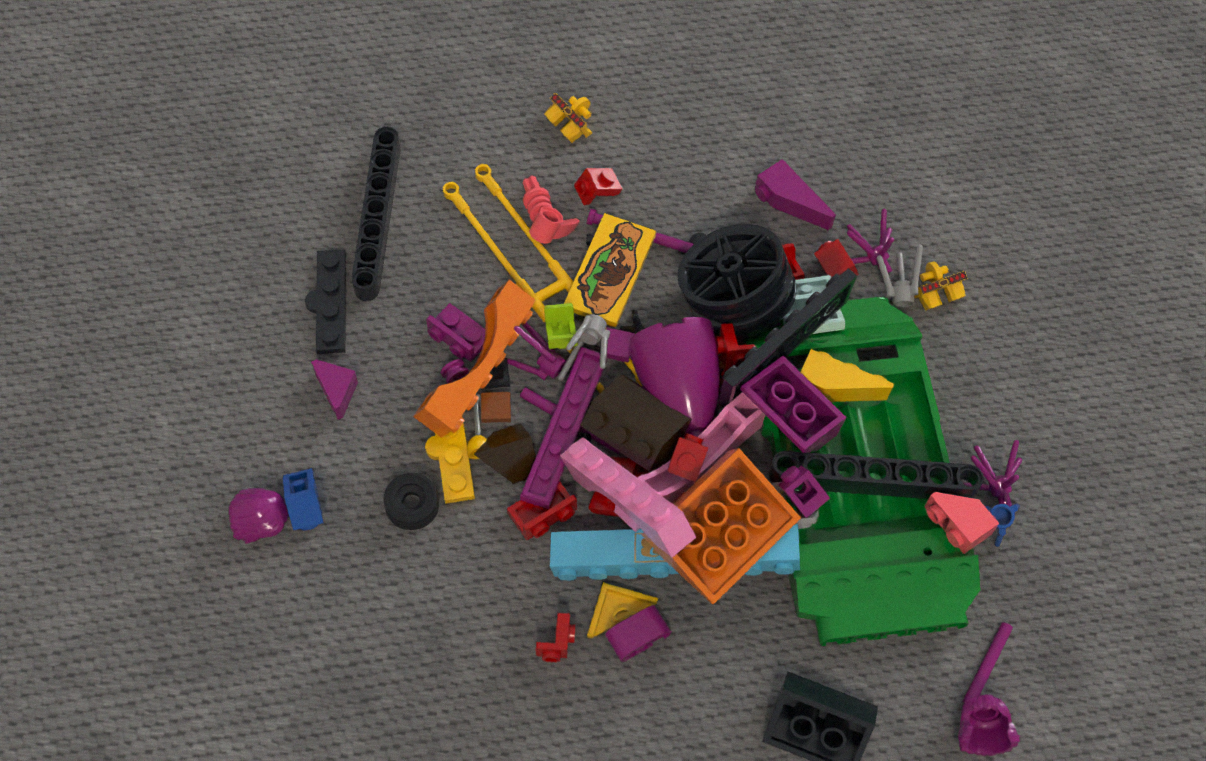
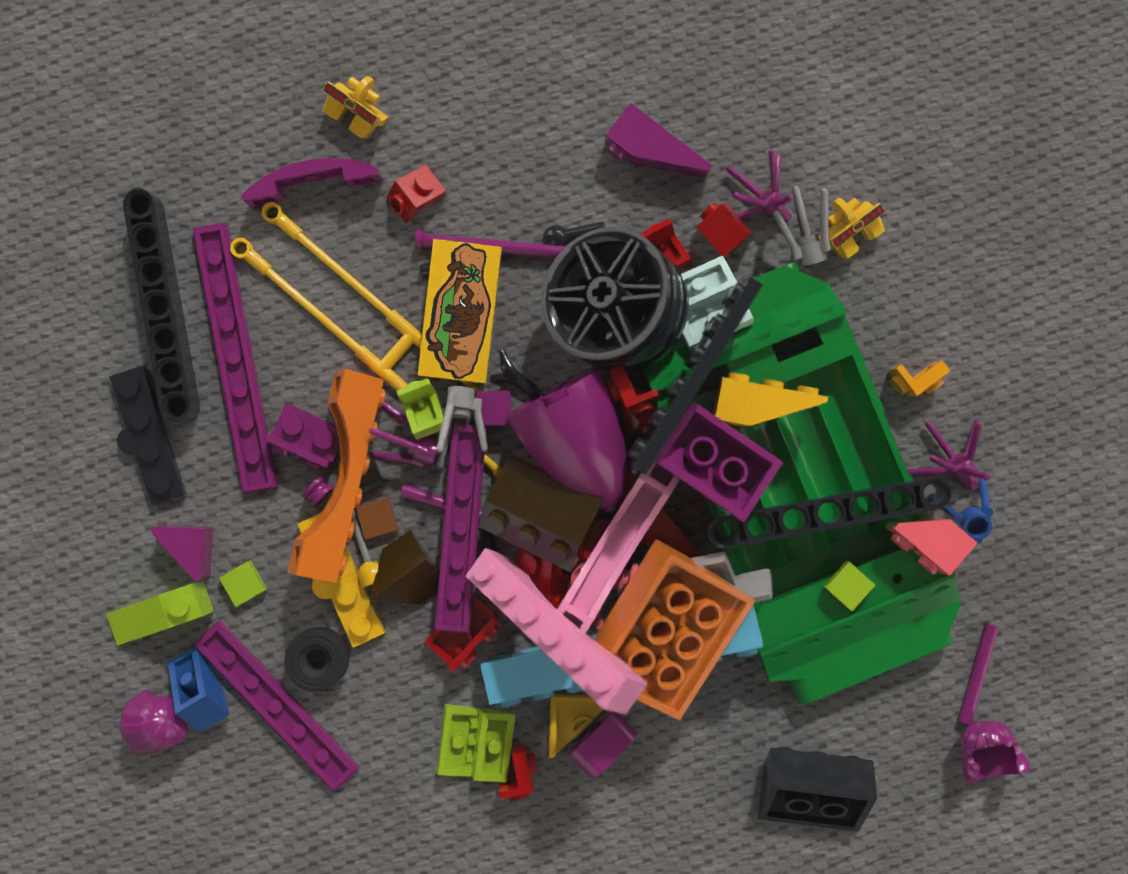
camera: 10 degrees left, 25 degrees up
(293, 430) = (160, 612): none -> lime slope
(364, 534) = (276, 705): none -> magenta tile
(368, 429) = (243, 583): none -> lime tile
(419, 267) = (235, 358): none -> magenta tile
(525, 150) = (270, 186): none -> magenta slope
(538, 613) = (491, 743): none -> lime slope
(546, 220) = (359, 256): coral piece -> none
(688, 457) = (611, 552): red bracket -> none
(811, 494) = (744, 560): magenta brick -> none
(884, 542) = (849, 585): none -> lime tile
(980, 411) = (926, 380): none -> light orange bracket

